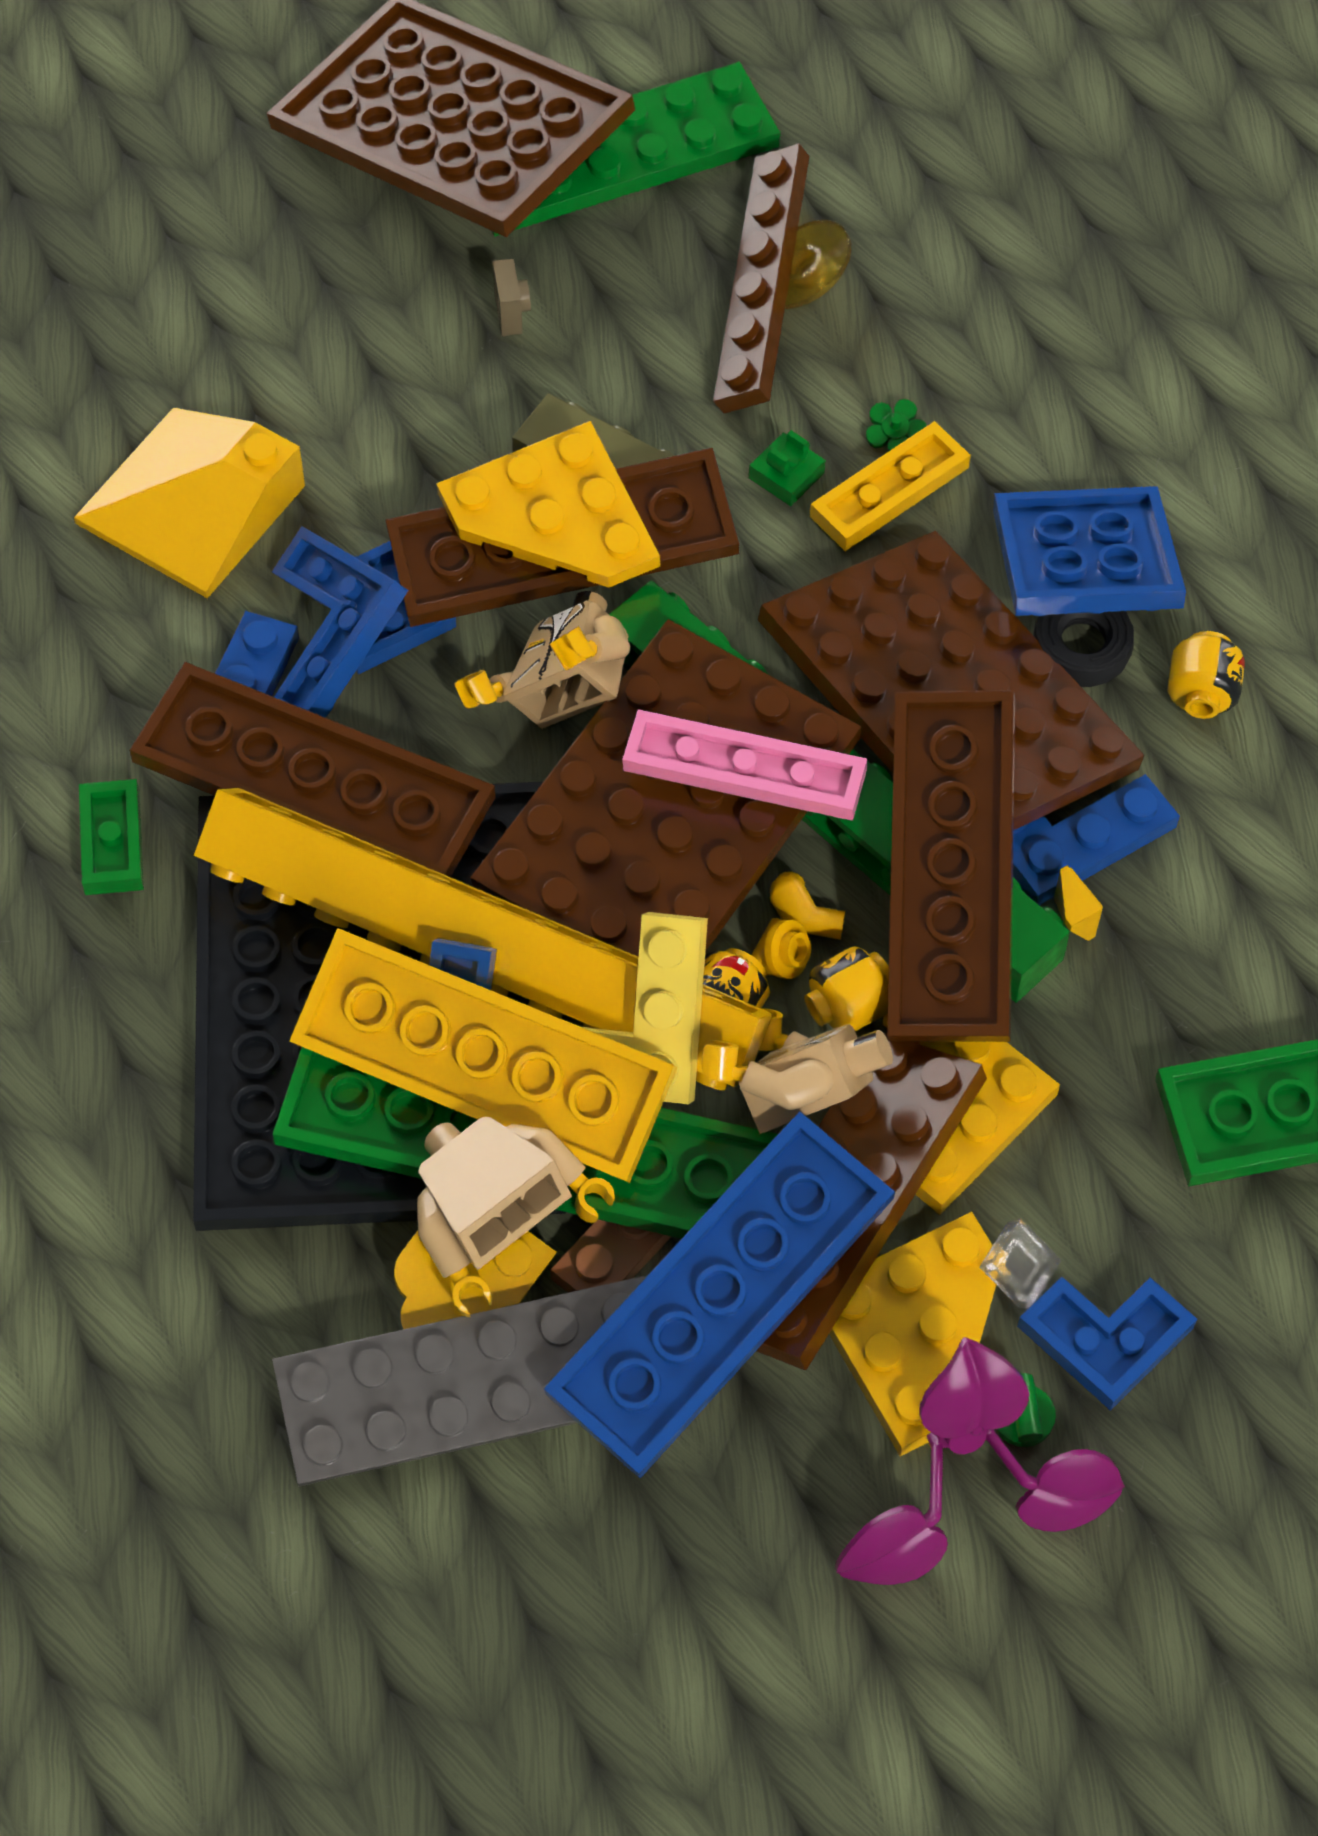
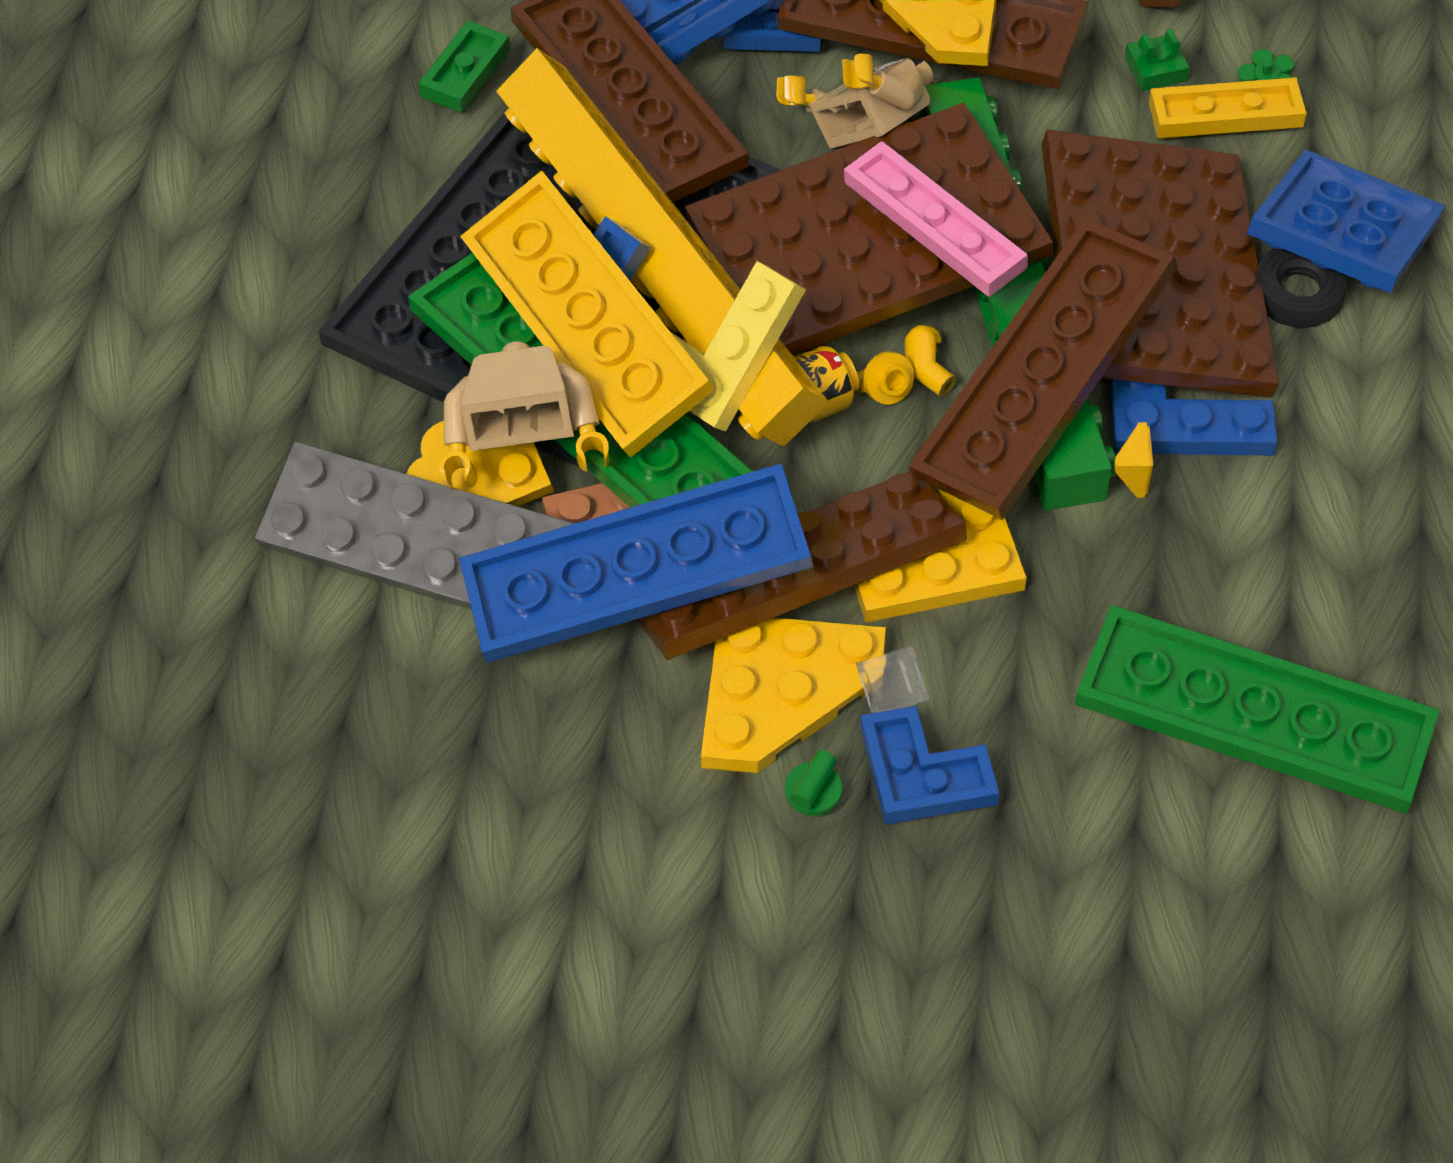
camera: 35 degrees right, 5 degrees down
(802, 1072) = (816, 453): tan torso -> none
(849, 989) = (906, 424): yellow head -> none
(961, 1411) = (746, 715): magenta plant -> none
(1205, 673) = (1379, 353): yellow head -> none

